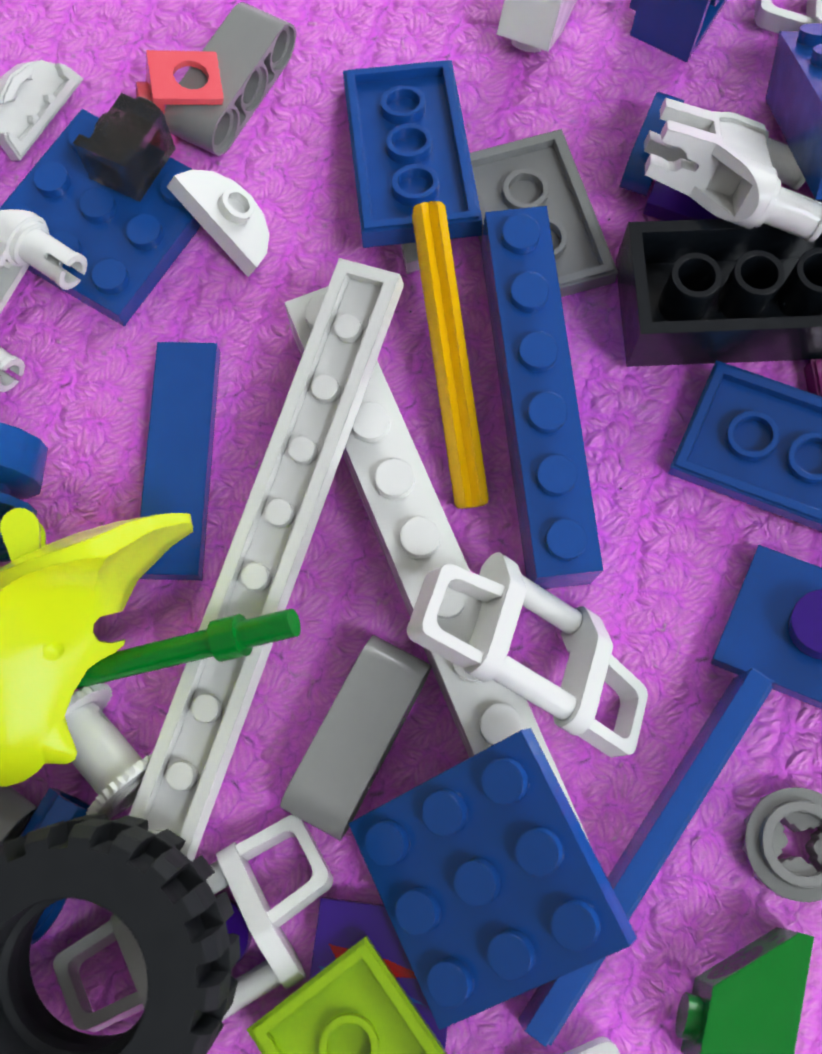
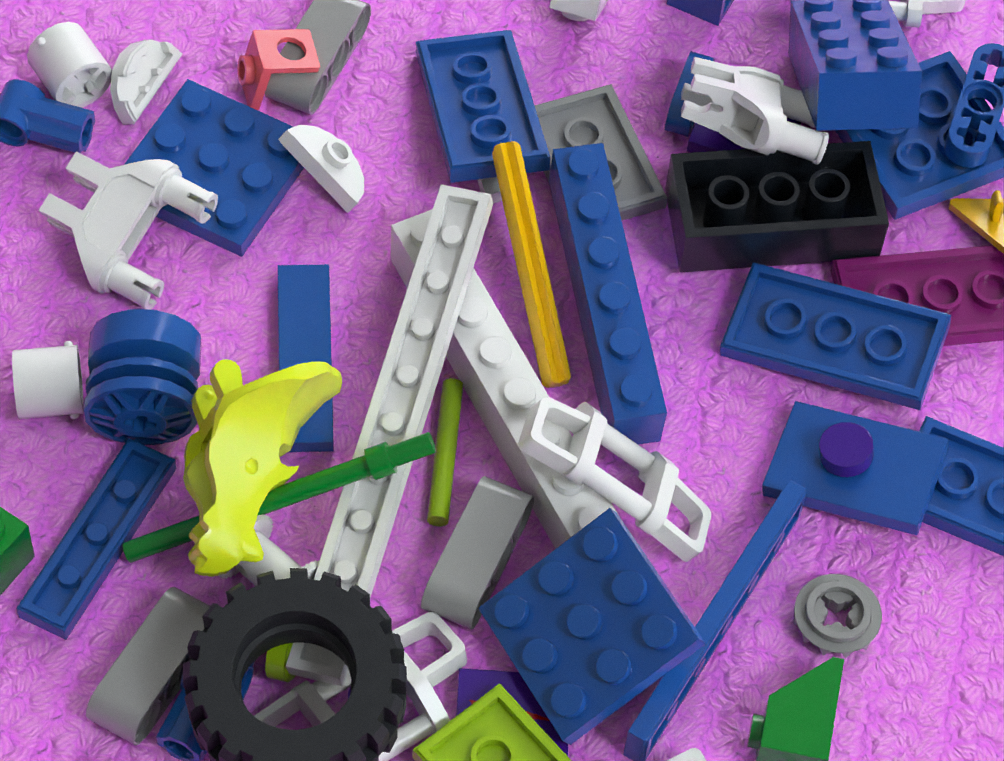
camera: 10 degrees left, 15 degrees down
(127, 146) = (242, 109): clear smoke brick -> none
(331, 592) = (445, 452): none -> lime bar

